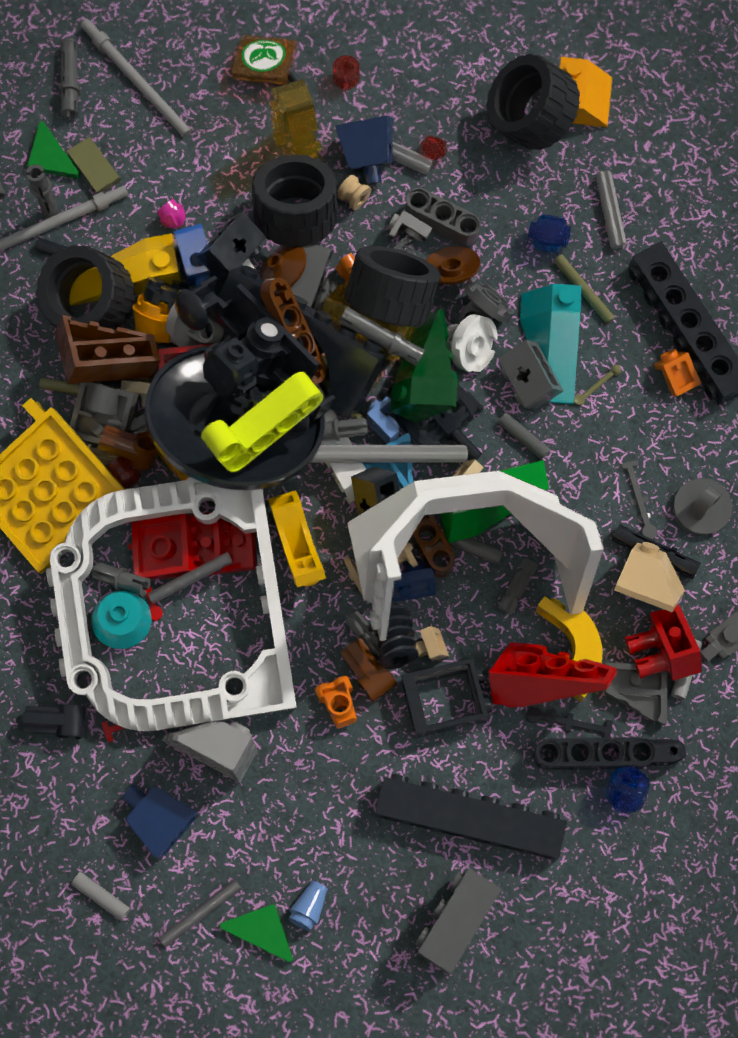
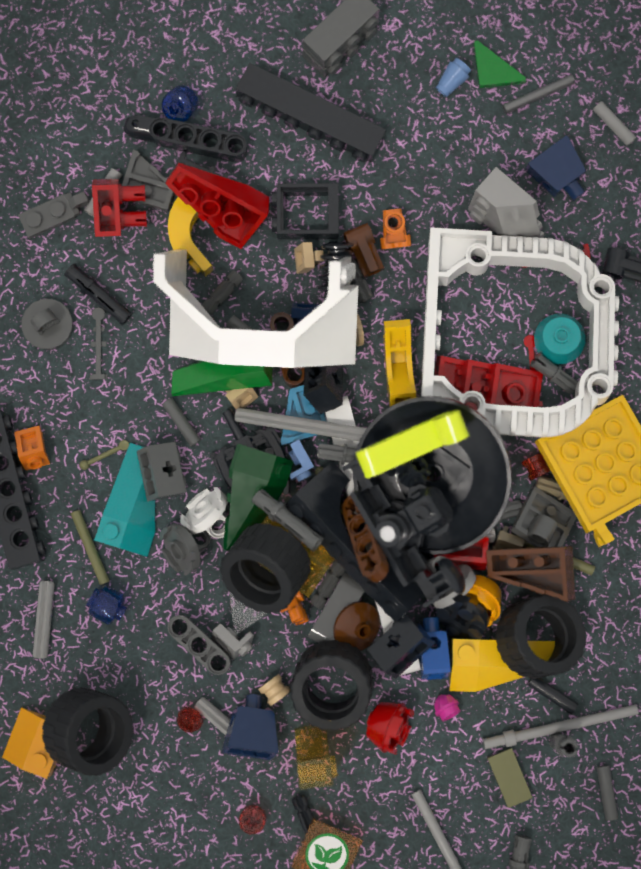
camera: 170 degrees left, 10 degrees up
(50, 155) = (549, 798): green tile -> none
(136, 448) = (531, 484): reddish brown piece -> none
(190, 577) = (495, 358): flat silver bar -> none
(227, 180) = (389, 726): none -> red cone
(455, 264) = (199, 603): reddish brown dish -> none
(650, 577) = (112, 262): tan slope -> none

